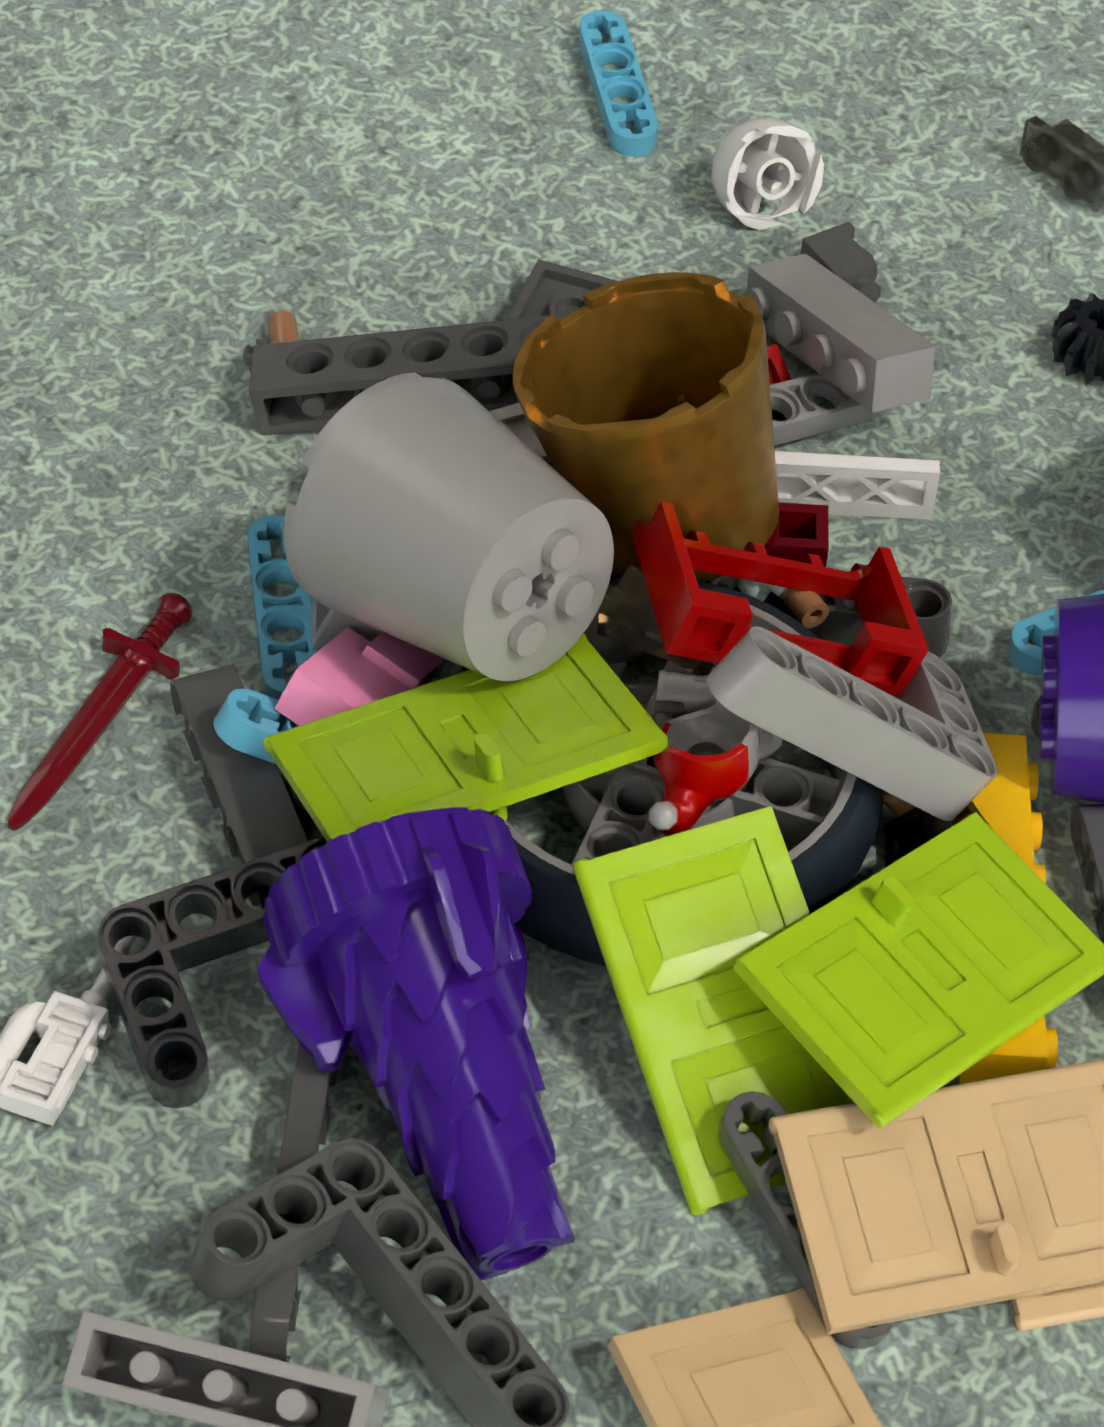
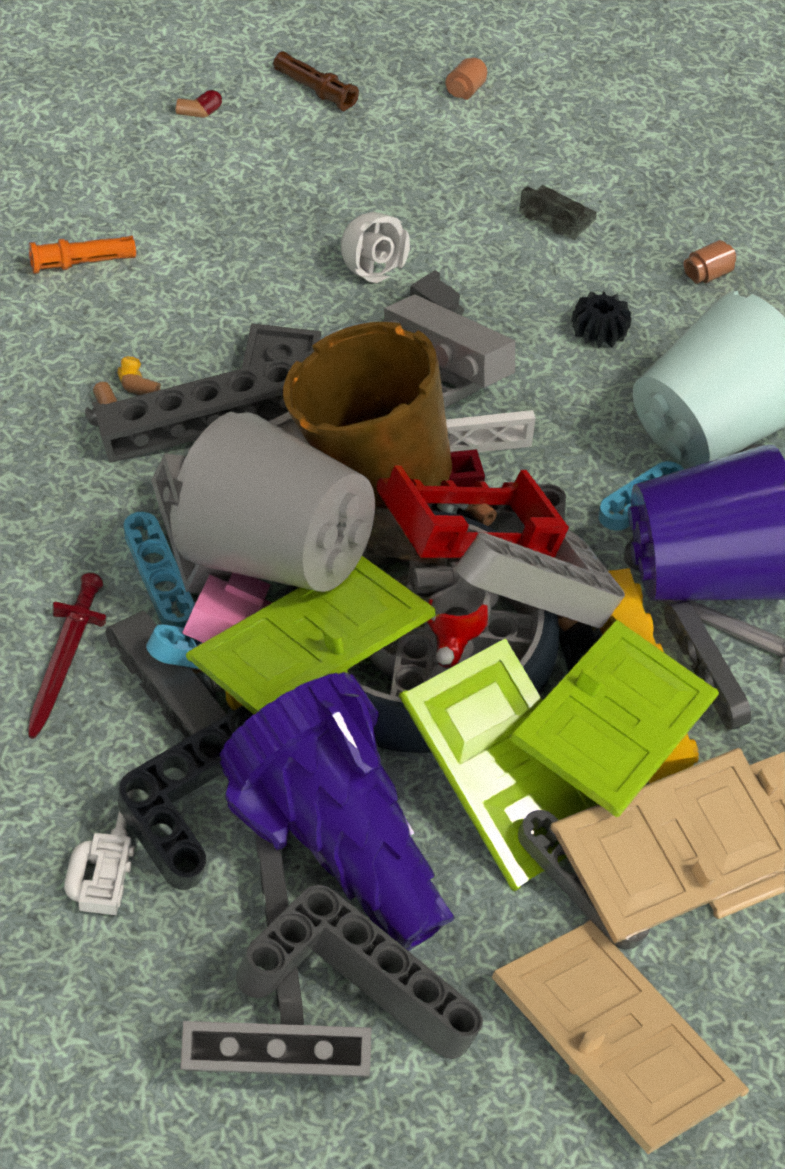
camera: 15 degrees left, 0 degrees up
(289, 113) = (65, 254): none -> orange pin
(333, 313) = (132, 379): none -> arm
(618, 83) = (261, 203): medium azure beam -> none

